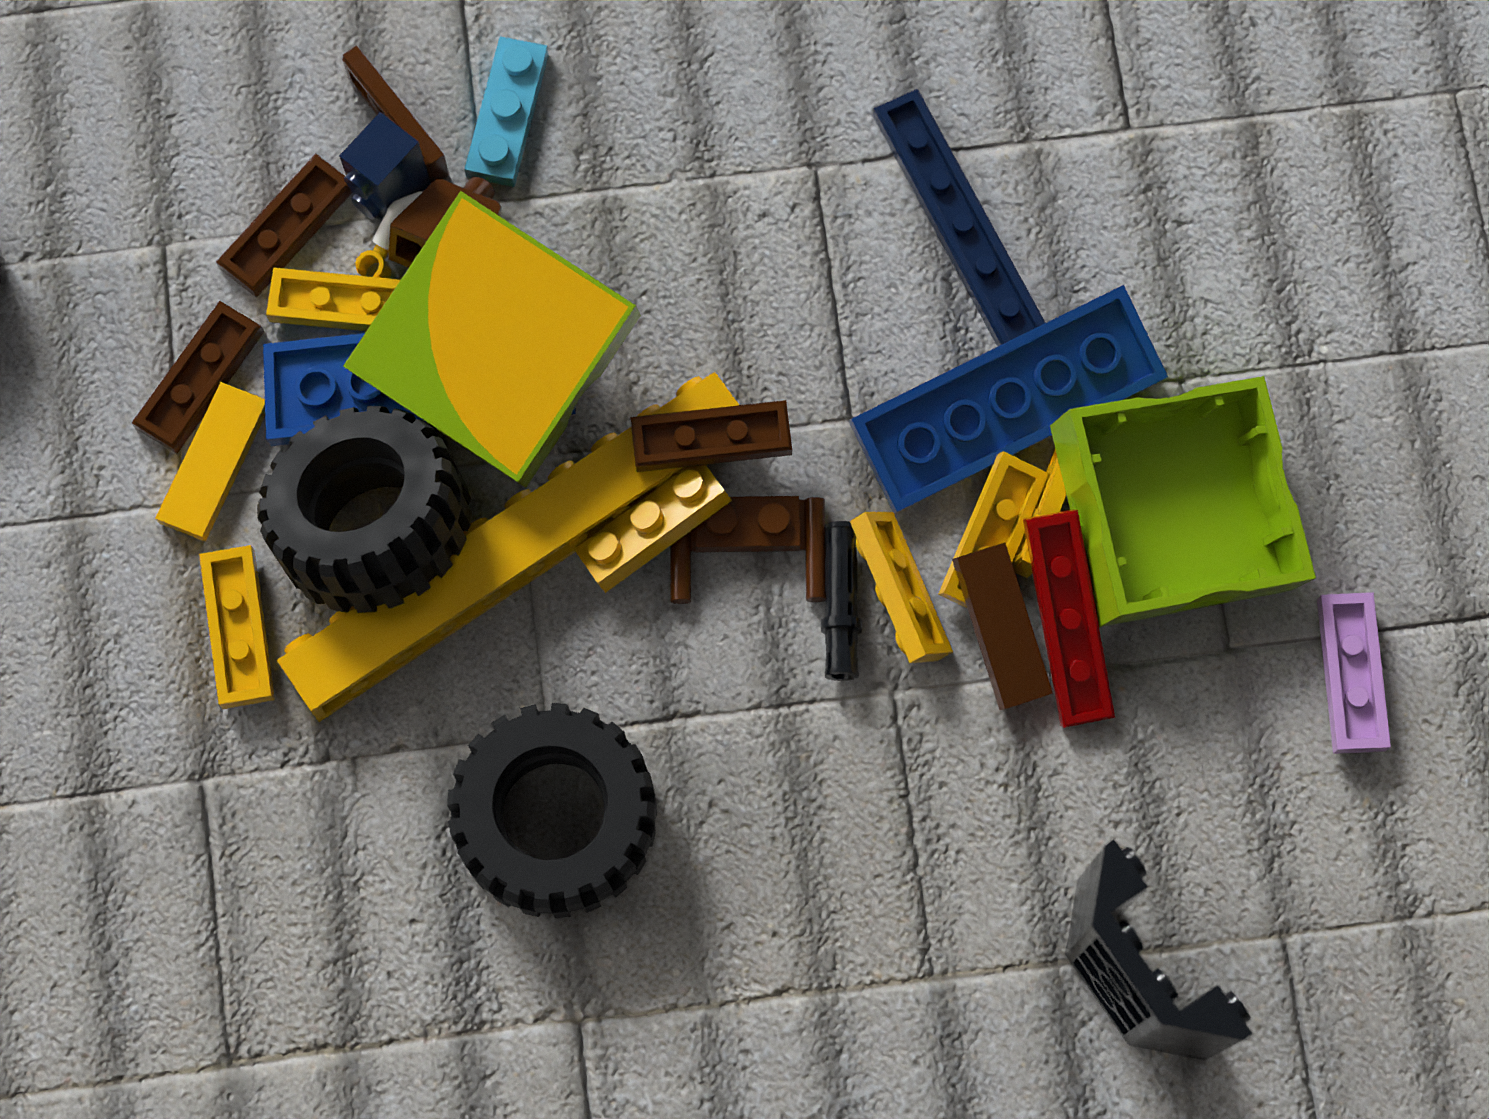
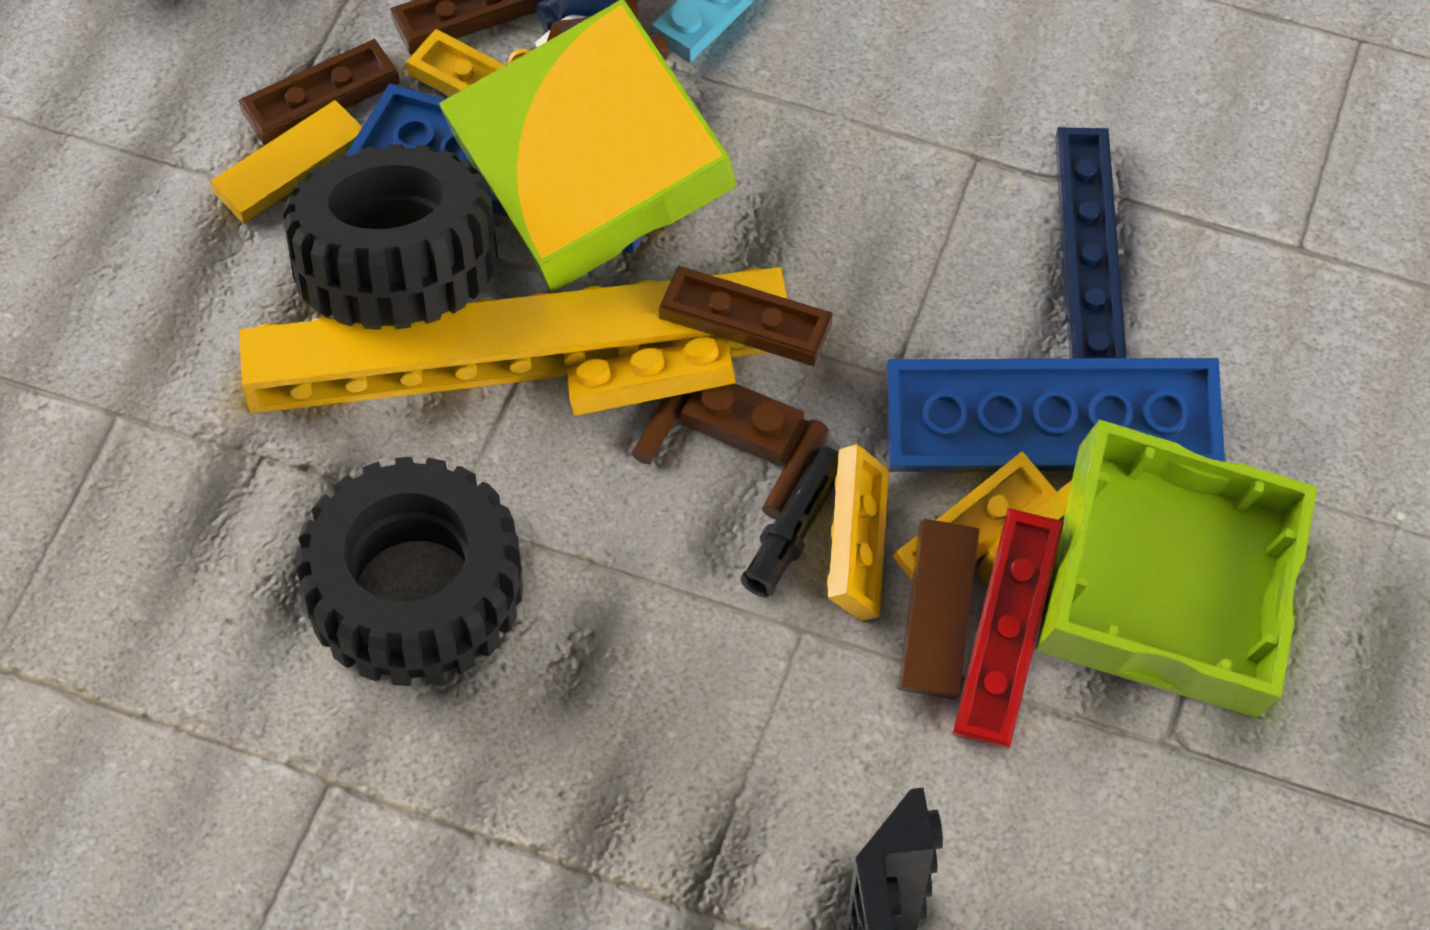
camera: 25 degrees right, 15 degrees down
(236, 627) = (224, 298): yellow plate -> none
(1353, 673) = (1280, 817): lavender plate -> none

